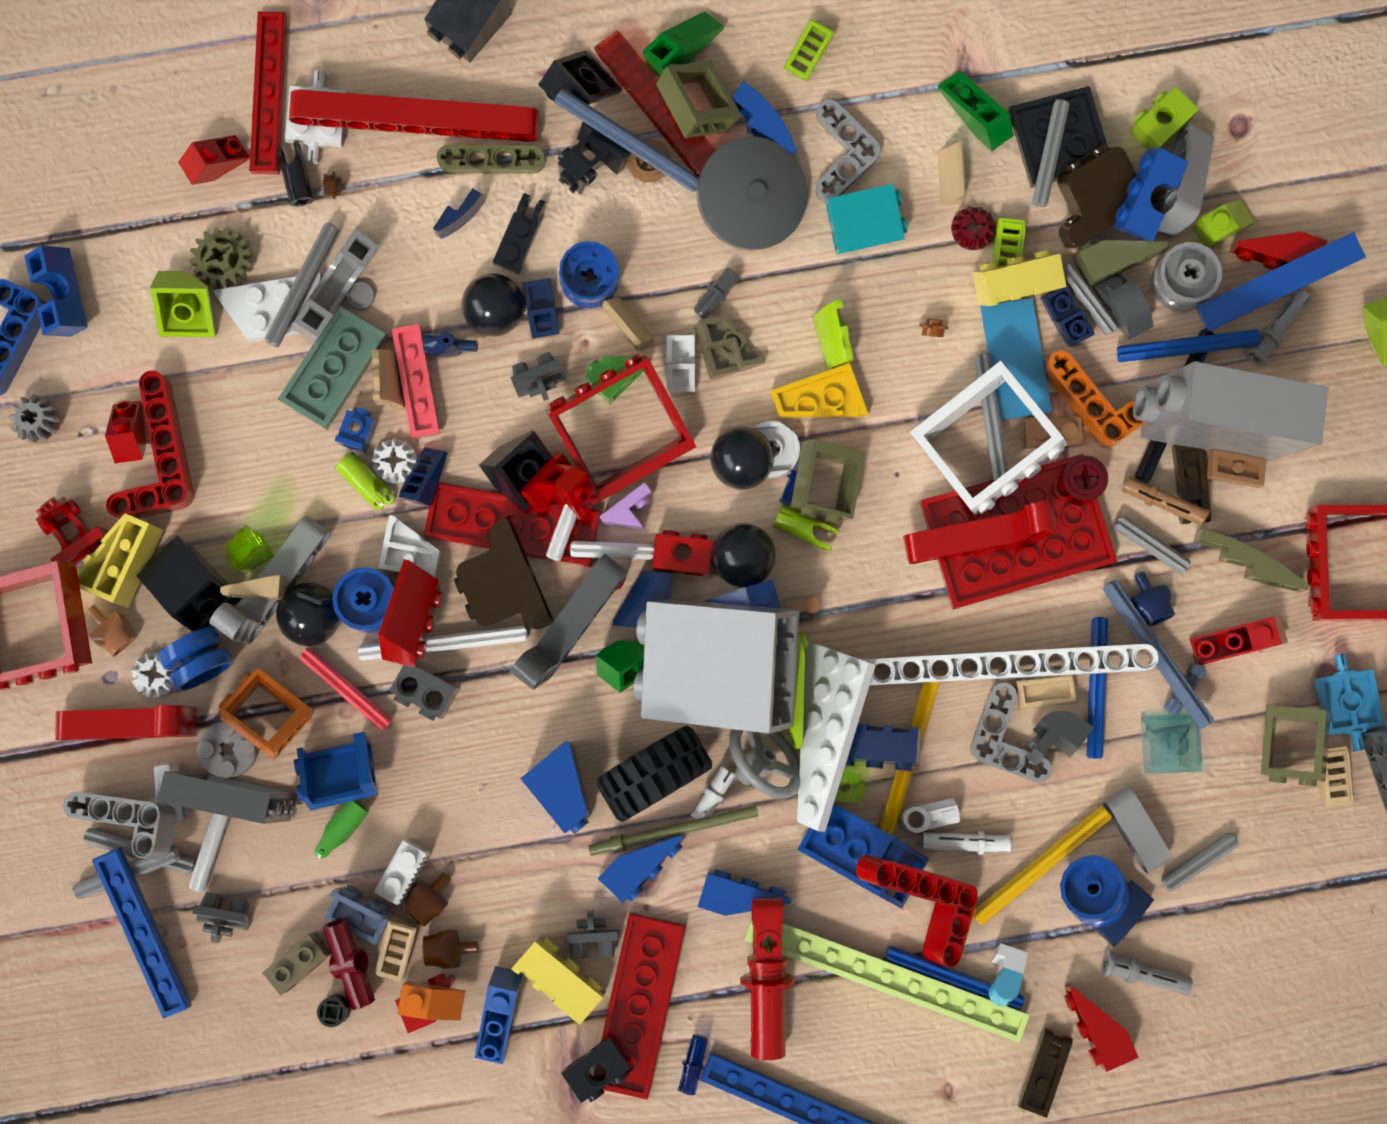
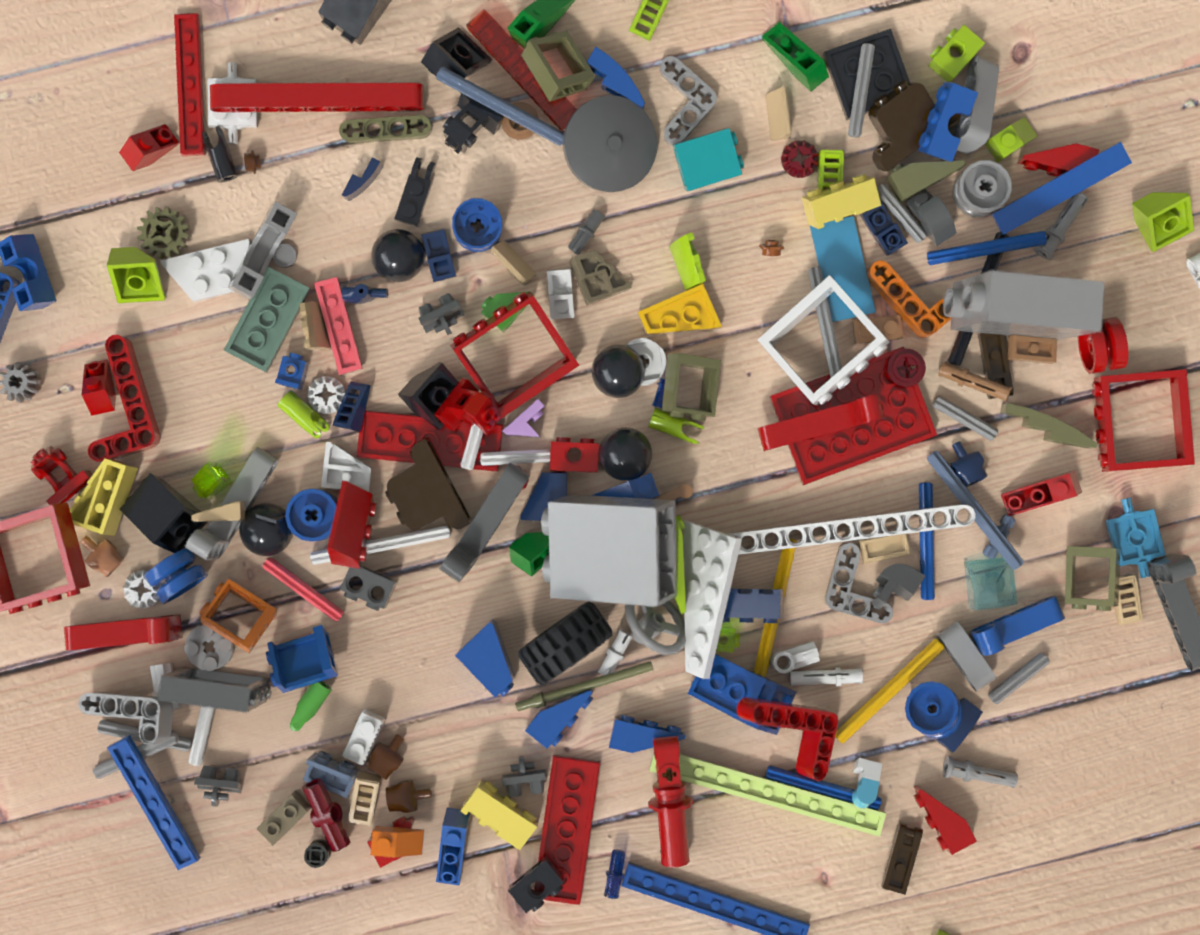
camera: 10 degrees left, 5 degrees up
(301, 285) = (234, 251): light grey axle -> none
(1201, 796) = (995, 634): none -> blue beam
(1322, 471) = (1104, 348): none -> red wheel

